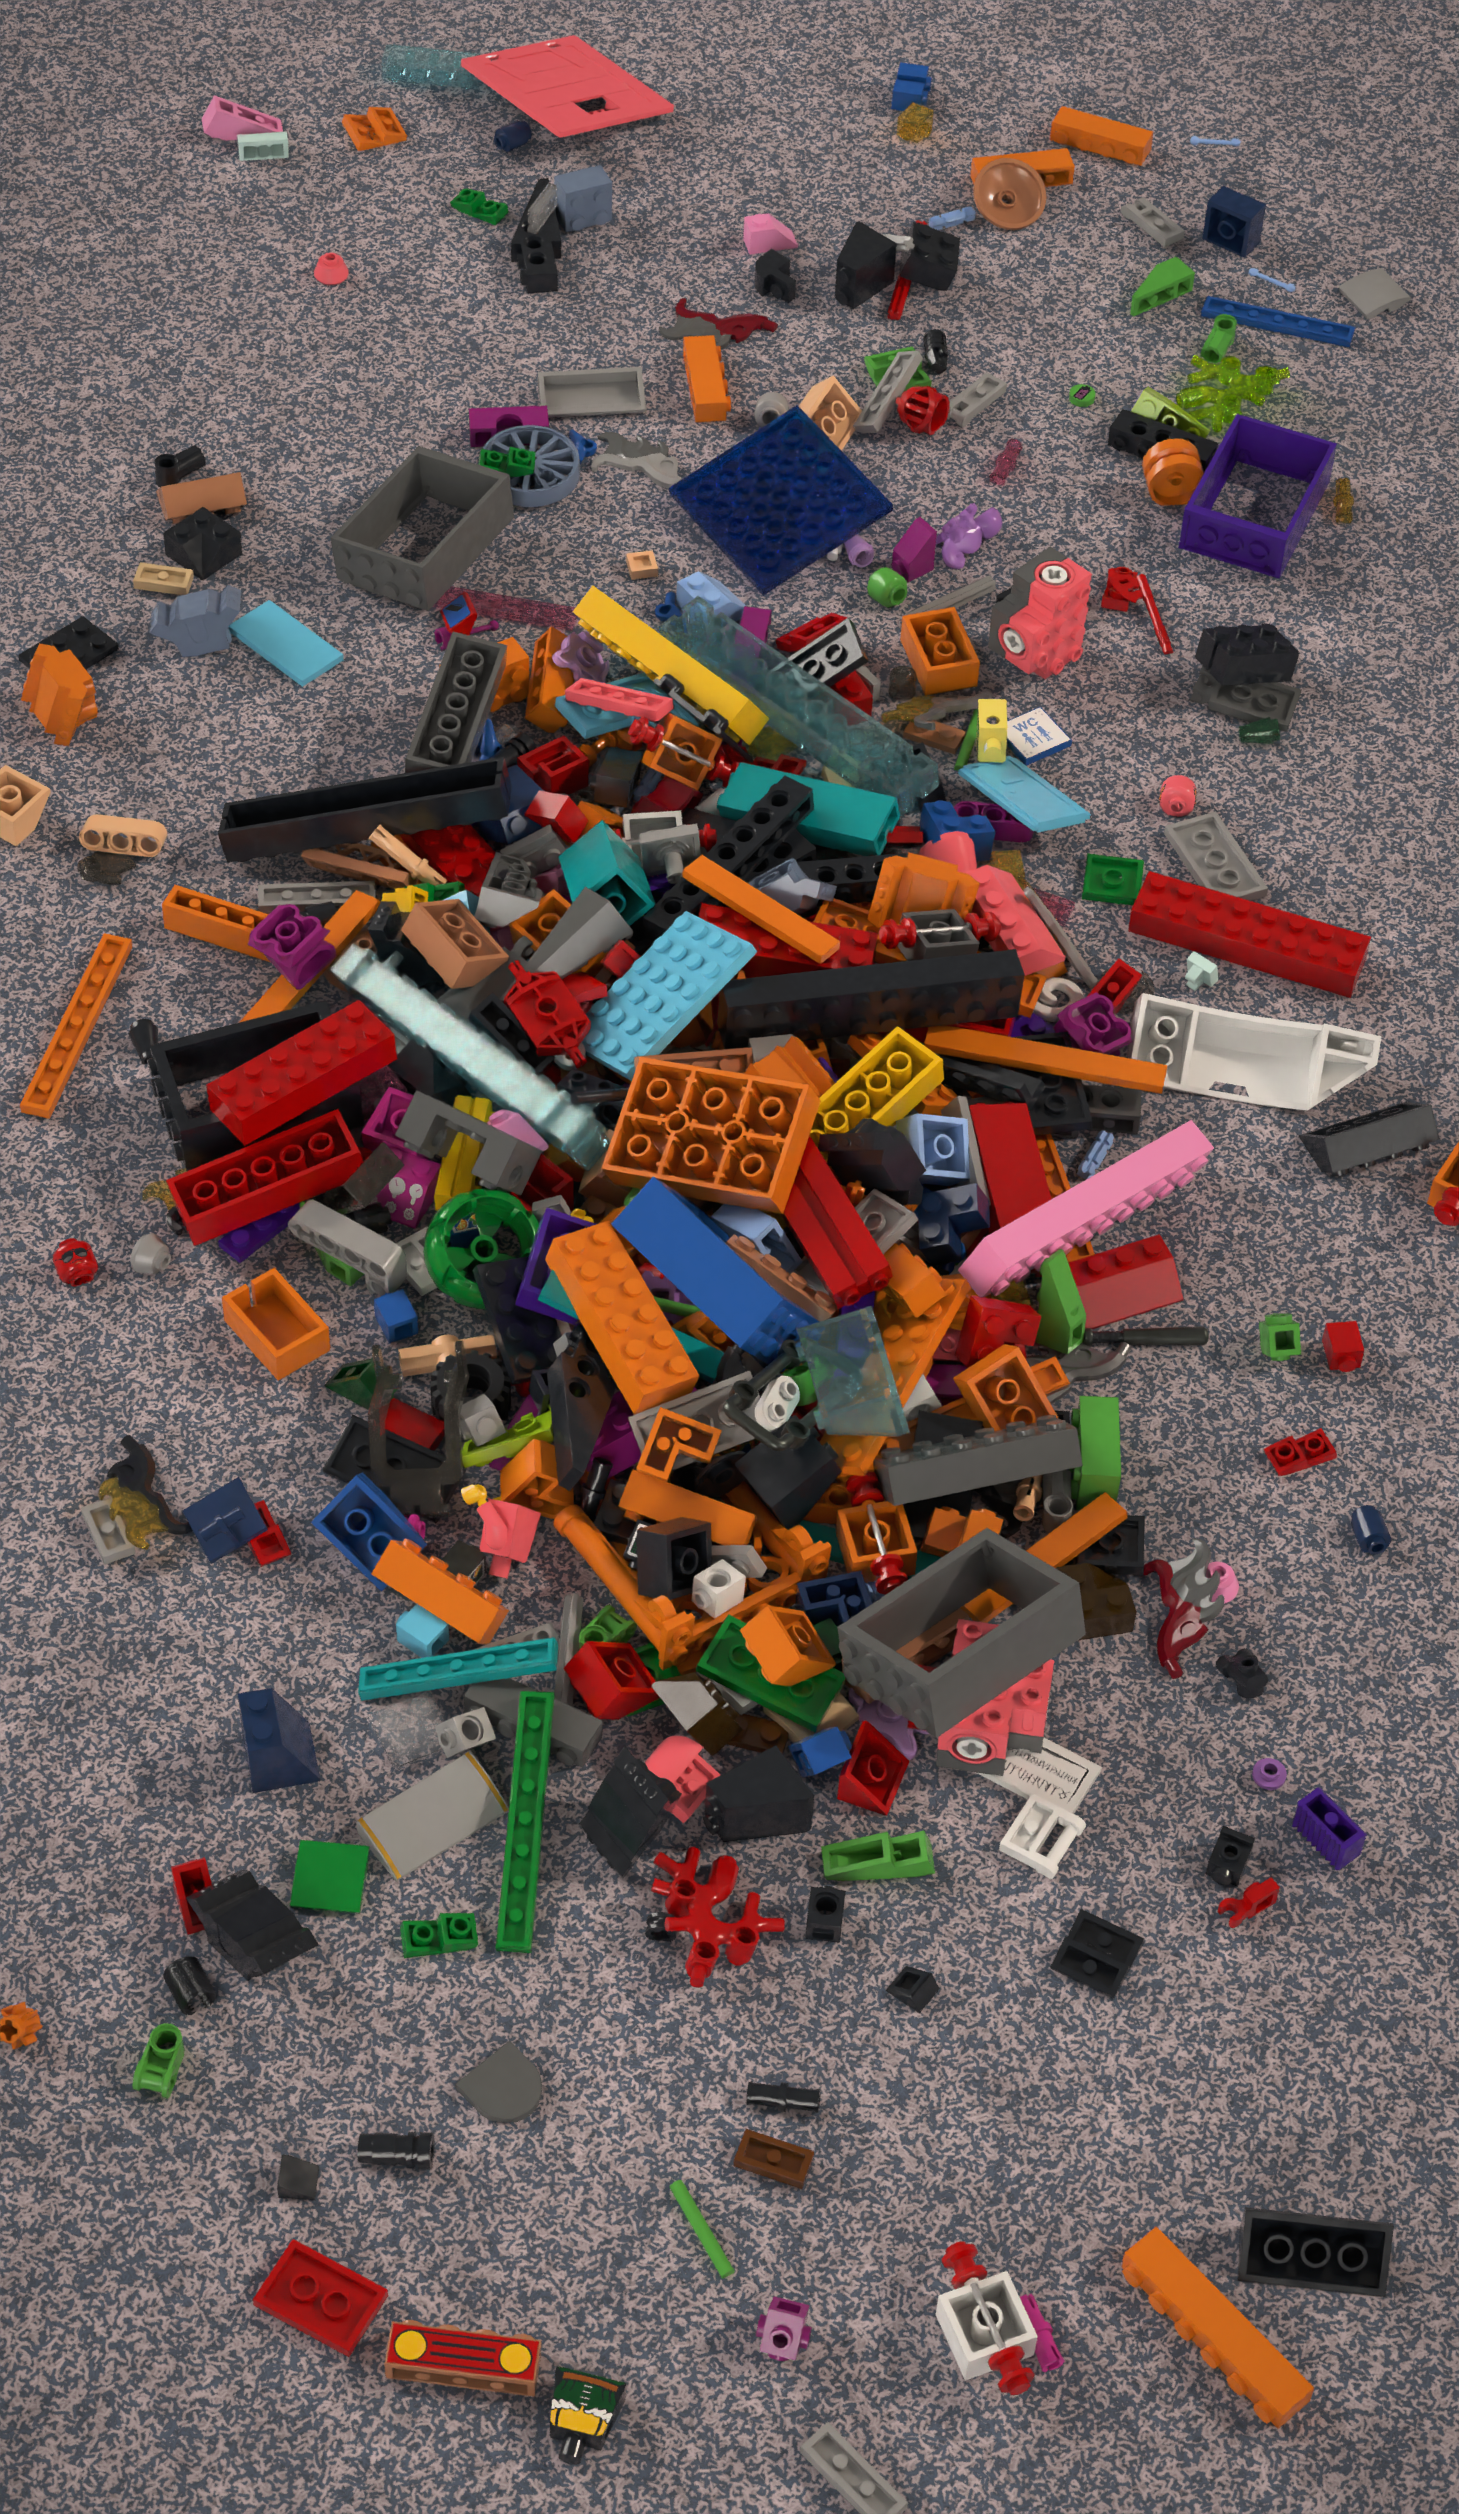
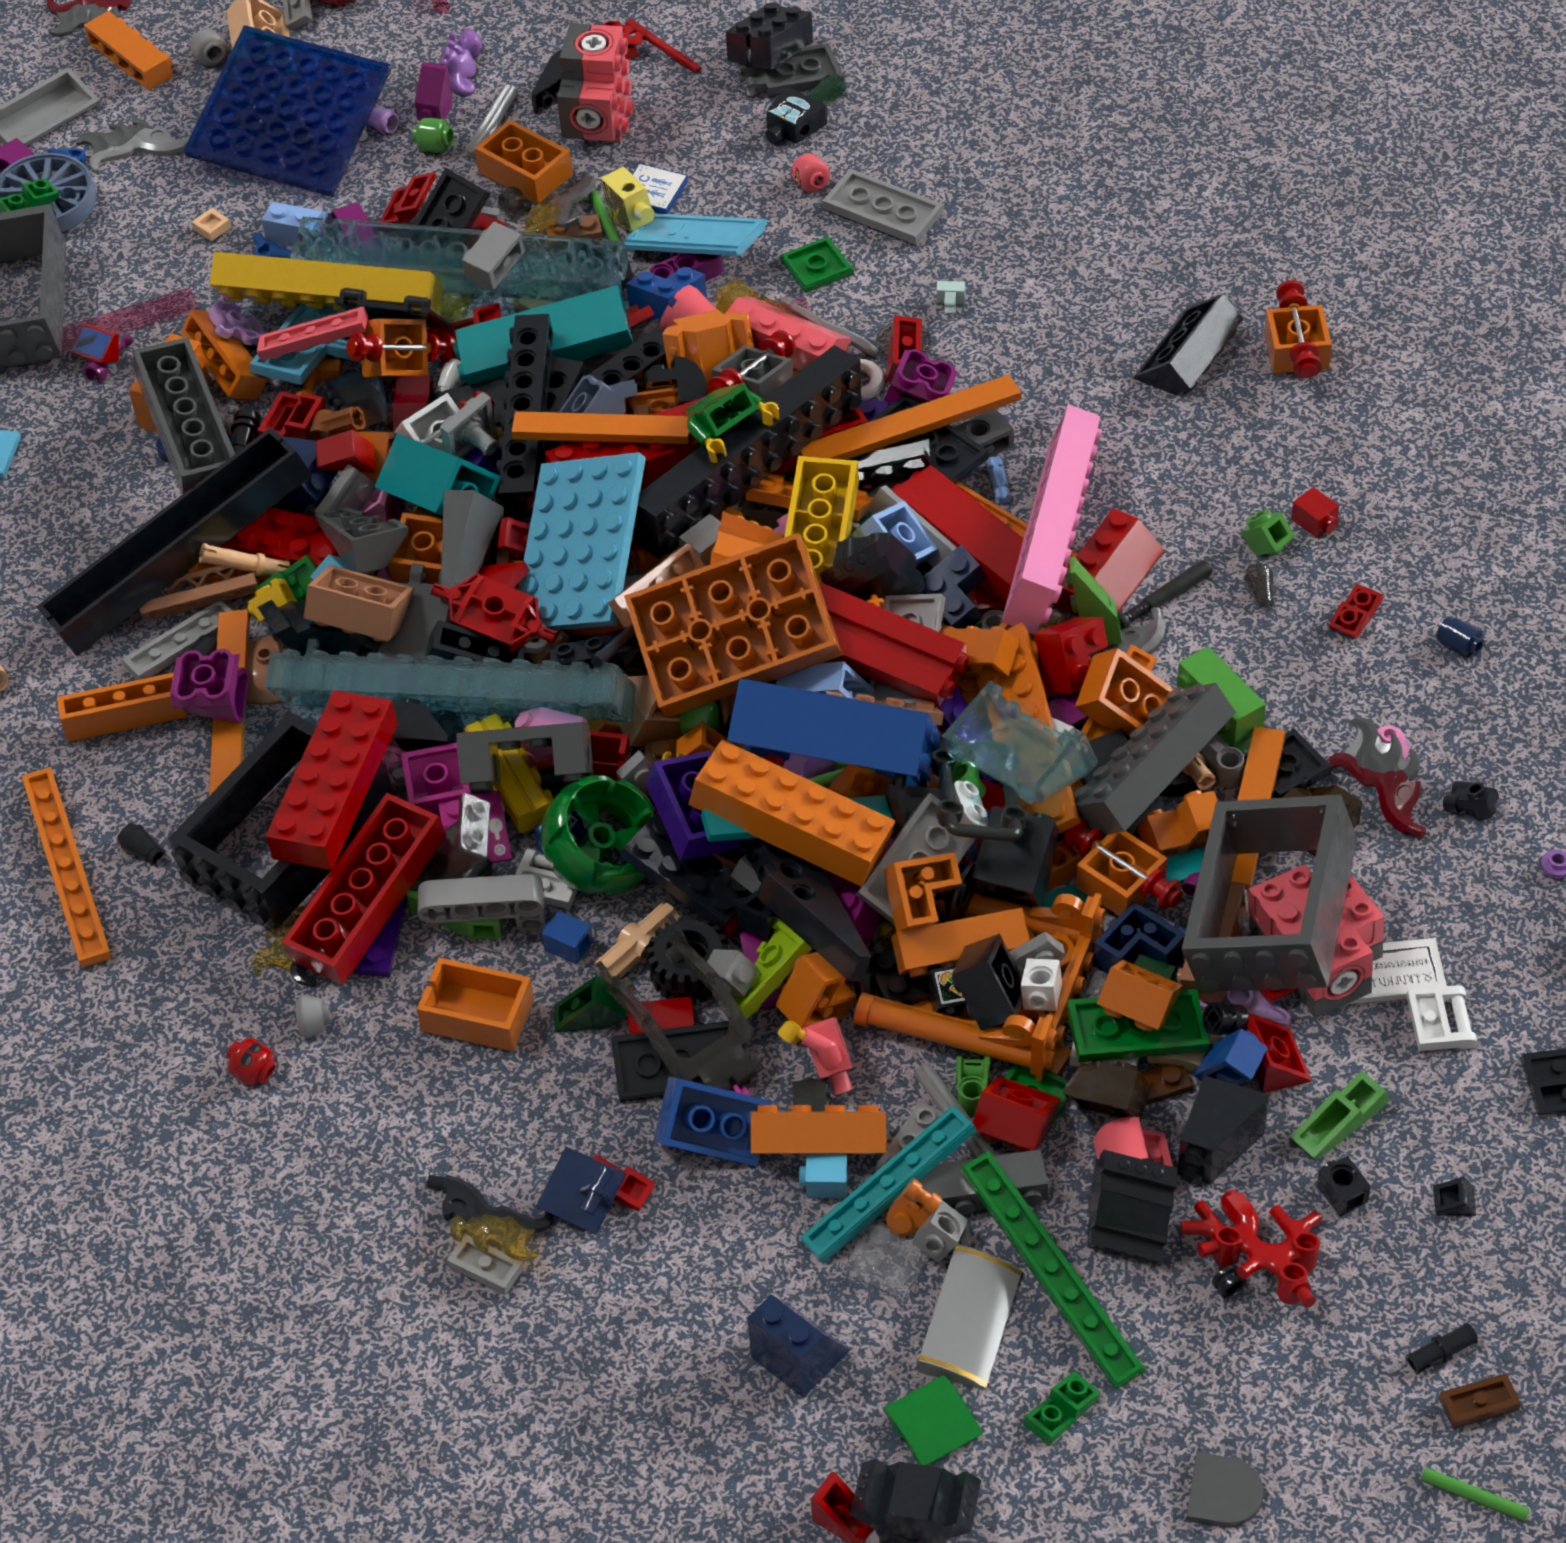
camera: 30 degrees left, 0 degrees up
(456, 1699) = (904, 1215): none -> orange plate
(577, 786) = (331, 423): none -> dark orange piece
(816, 714) = (493, 255): none -> light grey brick
(844, 1714) = (1224, 1019): none -> black wheel
(859, 949) = (722, 411): none -> green torso
(875, 905) = (684, 376): none -> black brick
(1208, 739) = (794, 117): none -> black torso
(1237, 1376) = (1260, 583): none -> clear smoke cone
(1249, 934) = (962, 246): red brick -> none
(1273, 1058) = (1068, 328): white slope -> none

